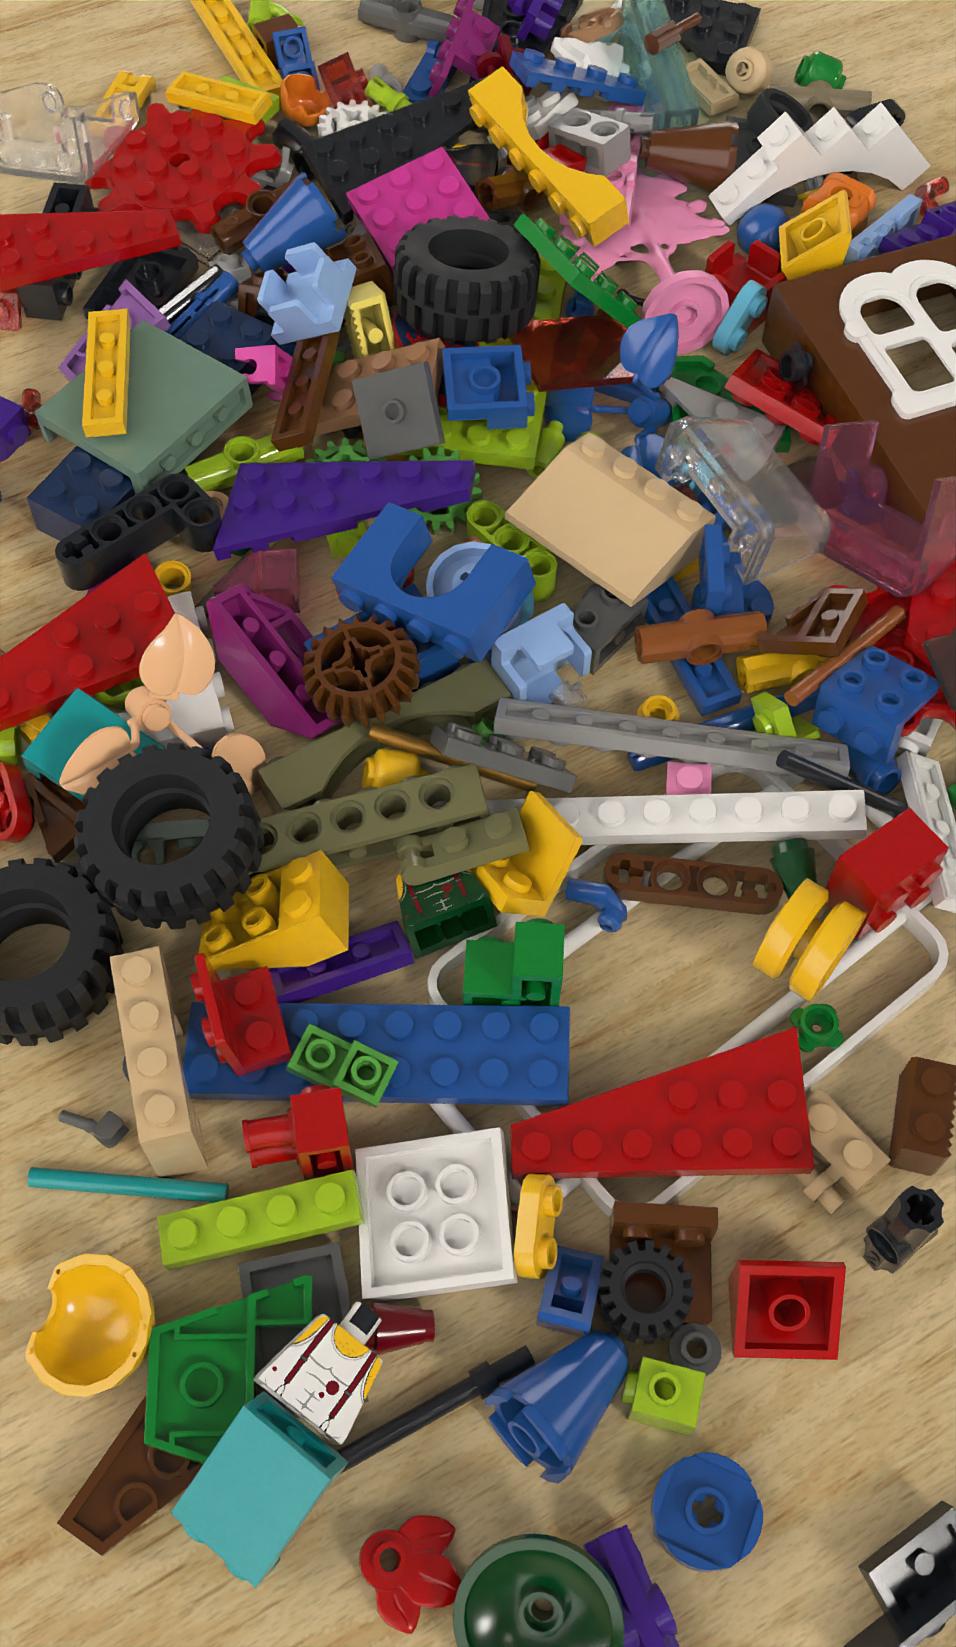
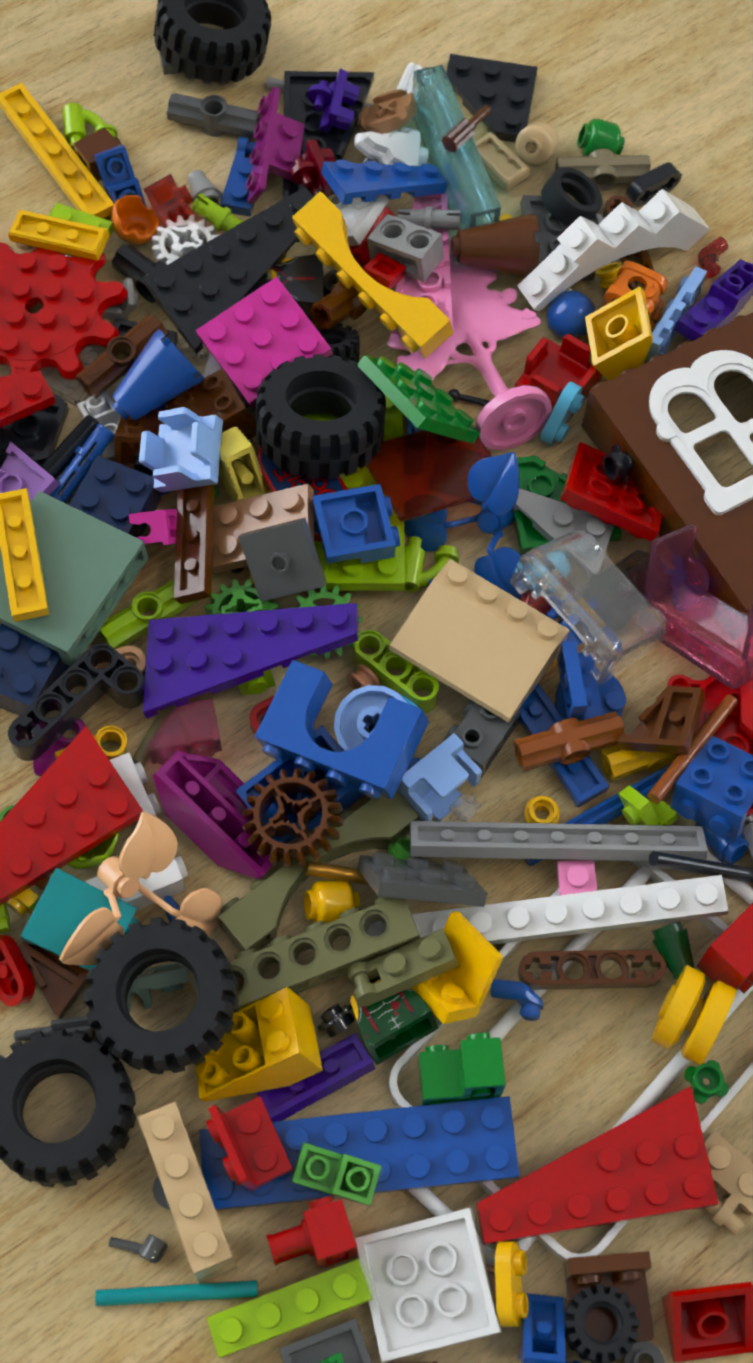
camera: 10 degrees left, 5 degrees up
(377, 903) = (336, 1019): none -> black plate

